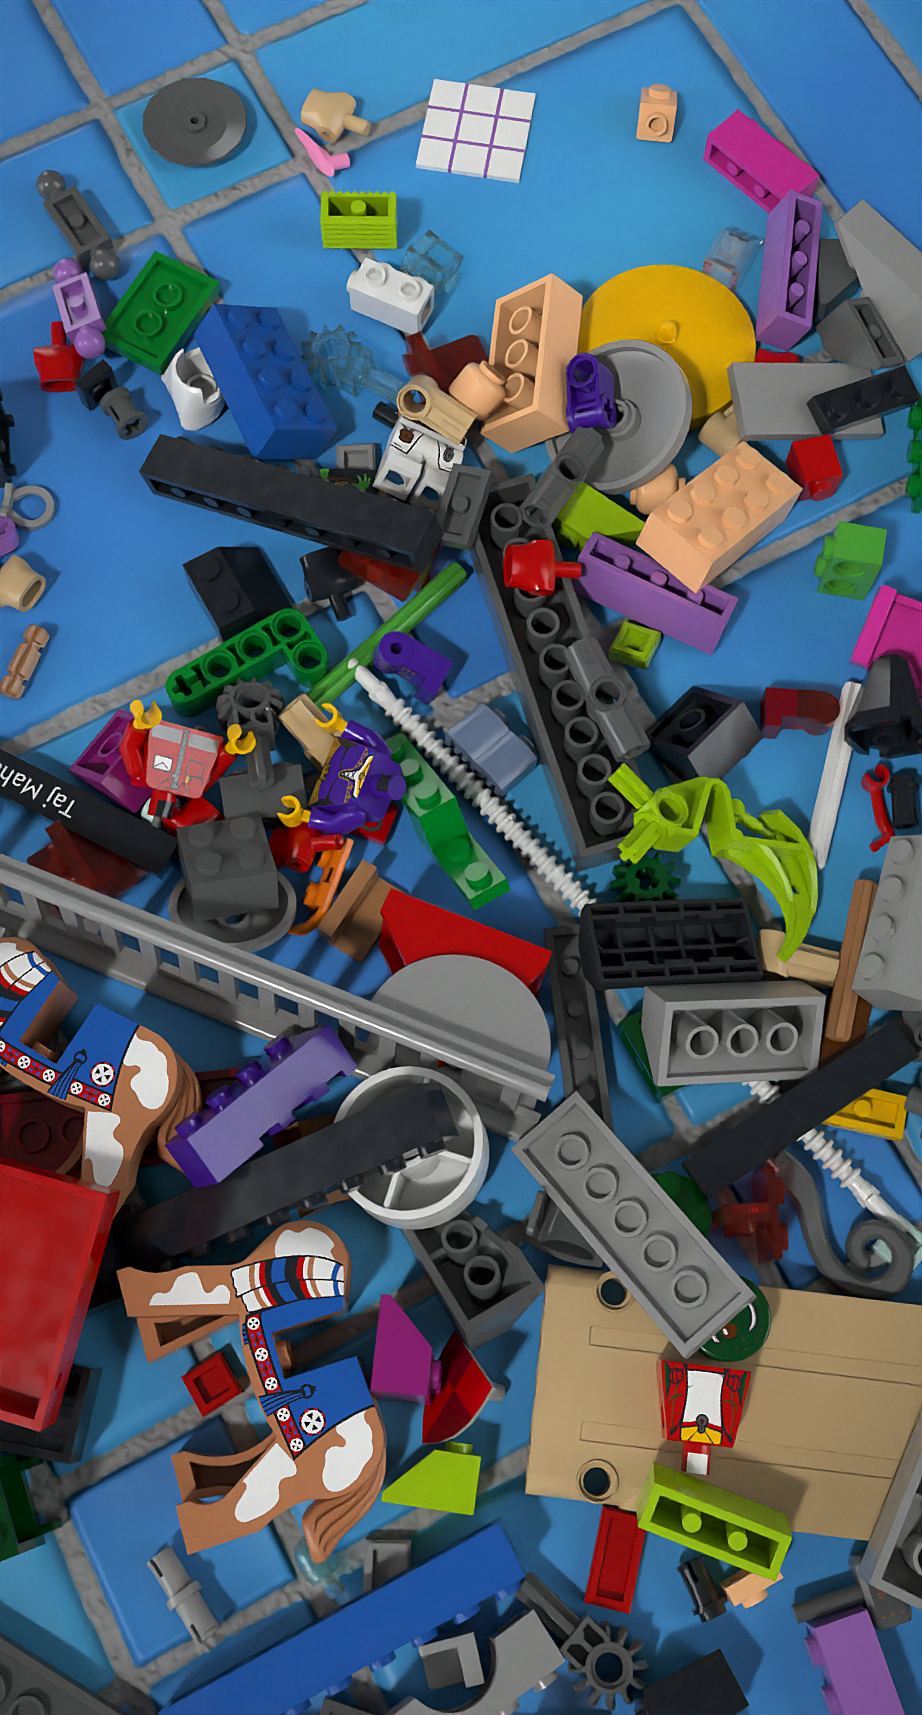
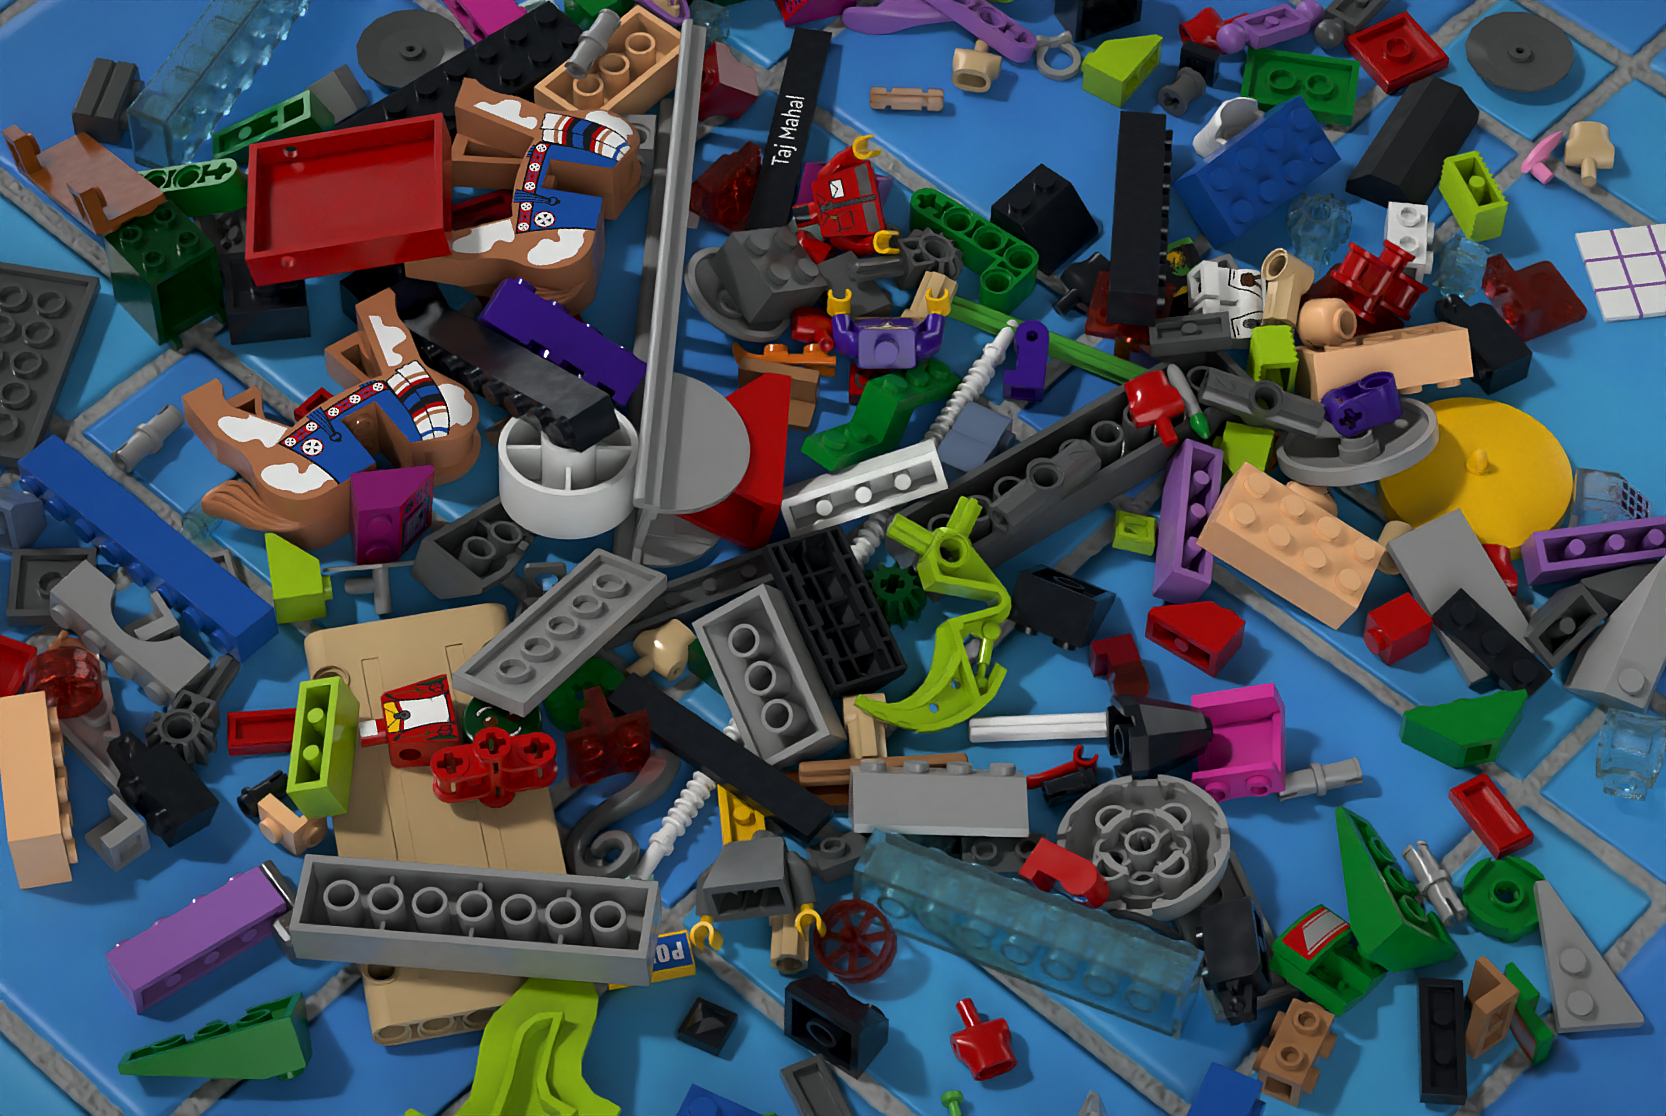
camera: 70 degrees right, 20 degrees down
(72, 456) = (1120, 67): none -> lime slope
(146, 220) = (1396, 52): none -> red tile
(268, 249) = (1413, 142): none -> black piece
(444, 329) = (1379, 281): none -> red axle
(485, 222) = (1531, 298): none -> clear red bracket
(503, 449) = (1273, 357): none -> lime brick
(512, 271) = (1495, 348): none -> black hinge
(532, 860) = (863, 488): none -> white brick
(562, 538) = (1192, 409): none -> light grey piece
(642, 1122) = (662, 650): none -> tan piece
(772, 629) = (1197, 633): none -> red slope
(787, 1362) = (474, 770): none -> red axle
(850, 560) = (1299, 667): bright green brick -> none

